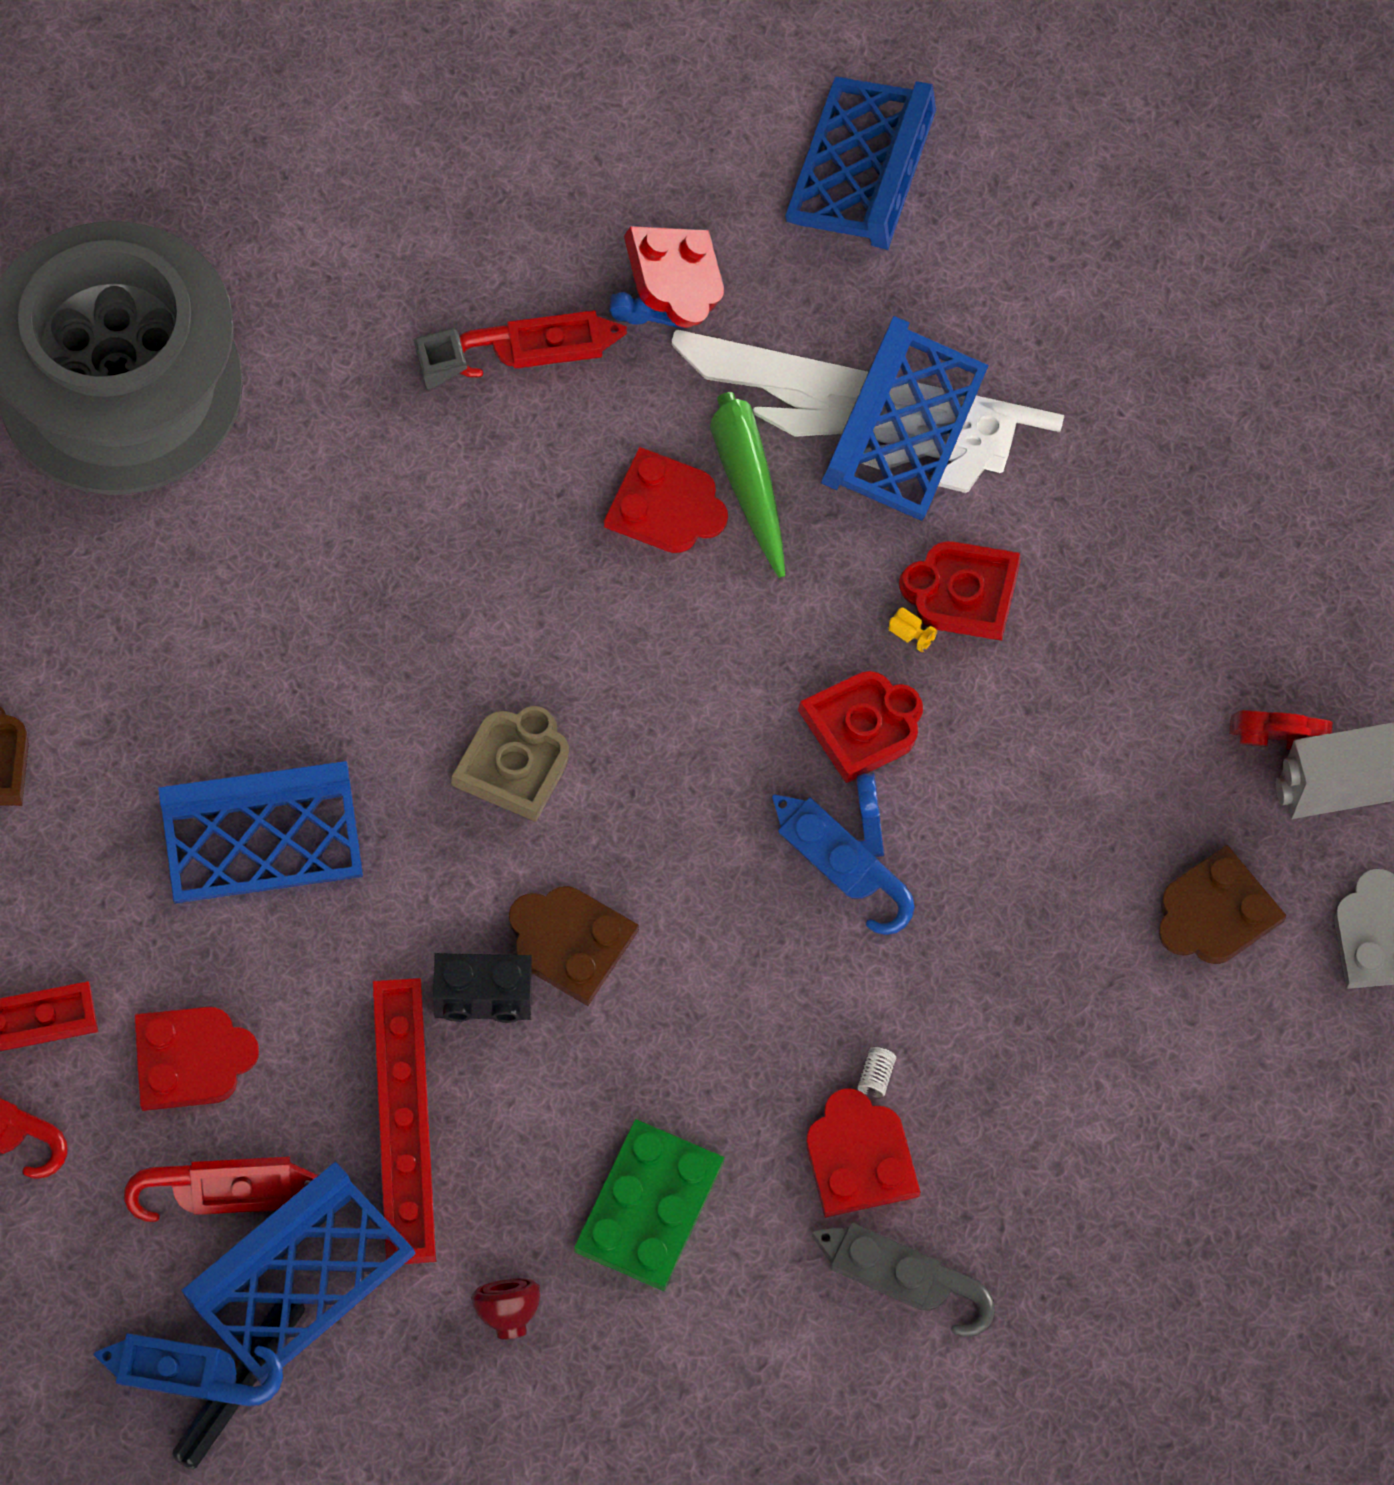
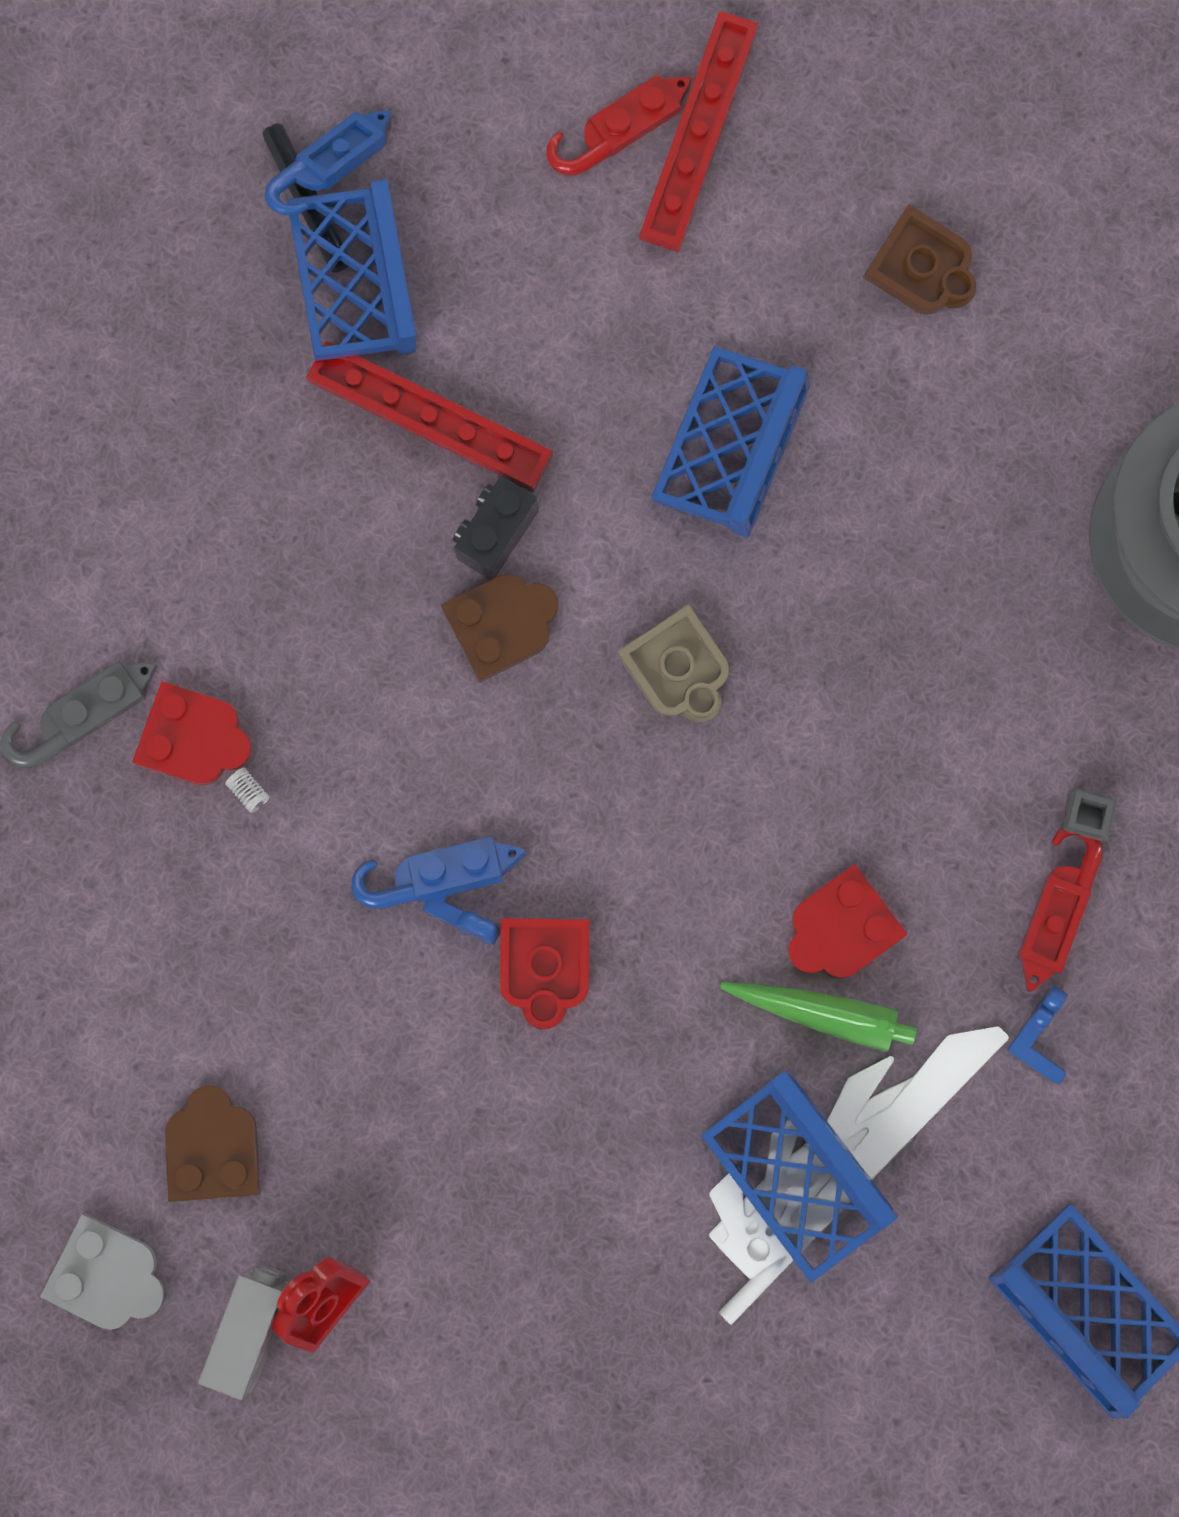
camera: 125 degrees right, 15 degrees up
(190, 1057) = (578, 293): red plate -> none
(221, 1185) = (456, 261): red plate -> none
(507, 1305) = (240, 407): dark red brick -> none
(649, 1205) = (253, 558): green plate -> none
(675, 272) = (1061, 1066): plate -> none
(908, 626) = (608, 1058): yellow piece -> none
(963, 588) = (616, 1126): red plate -> none

